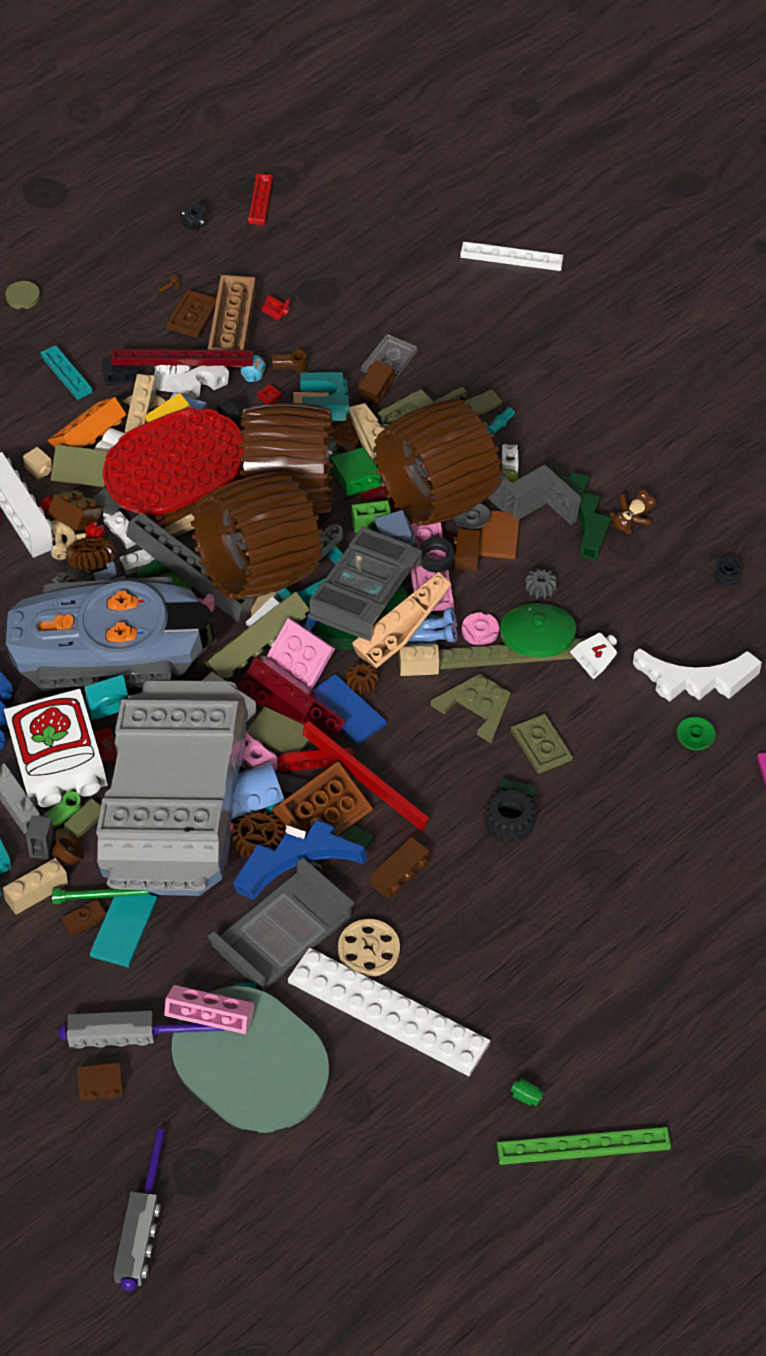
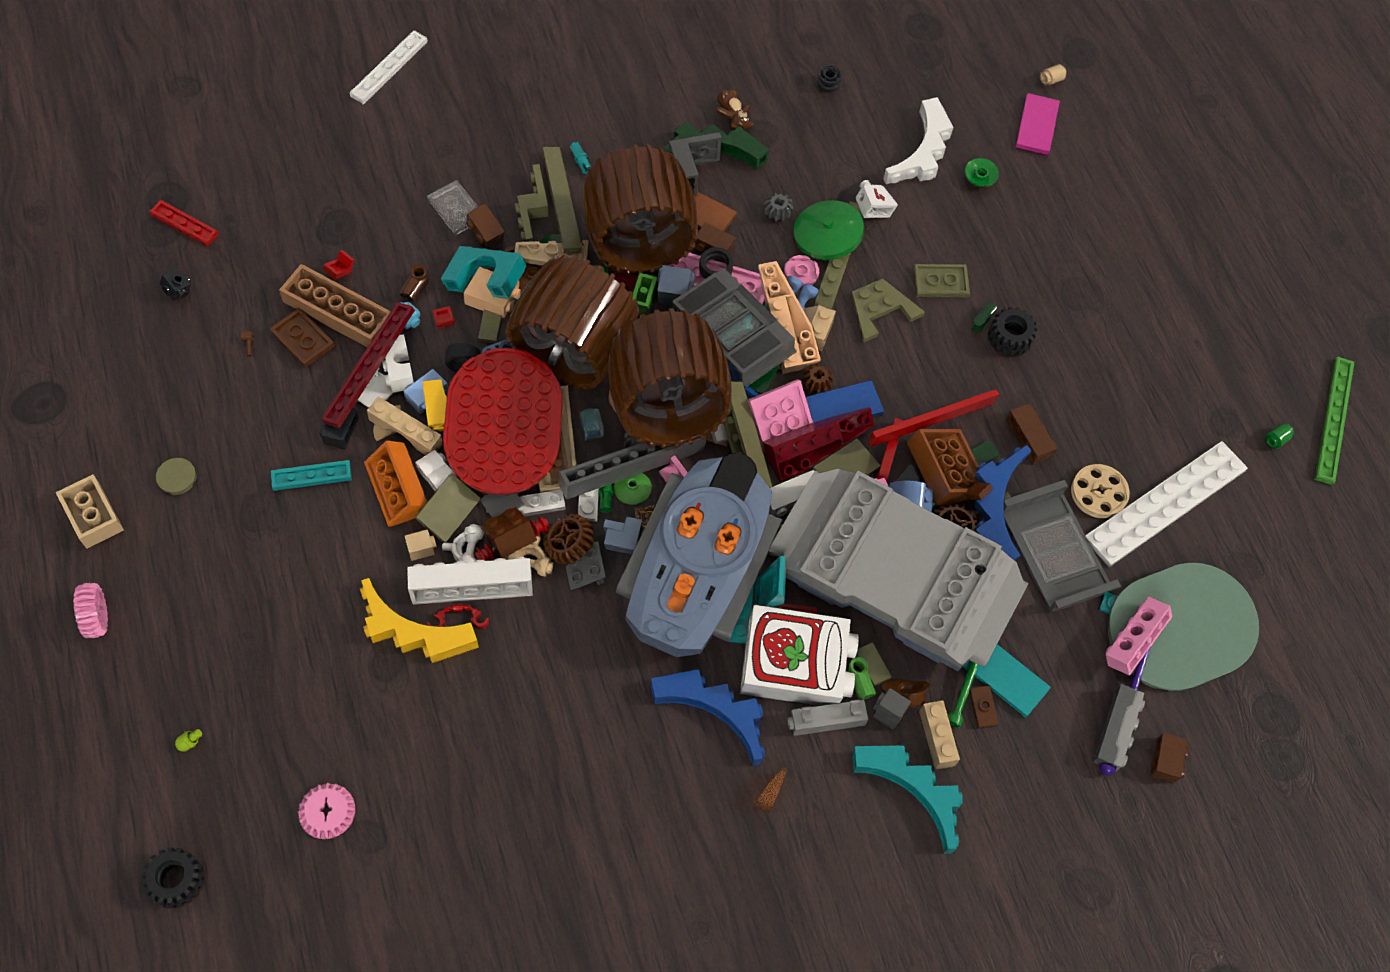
camera: 70 degrees left, 10 degrees up
(48, 487) = (472, 535): none -> white piece
(139, 1227) = (1326, 780): piece -> none

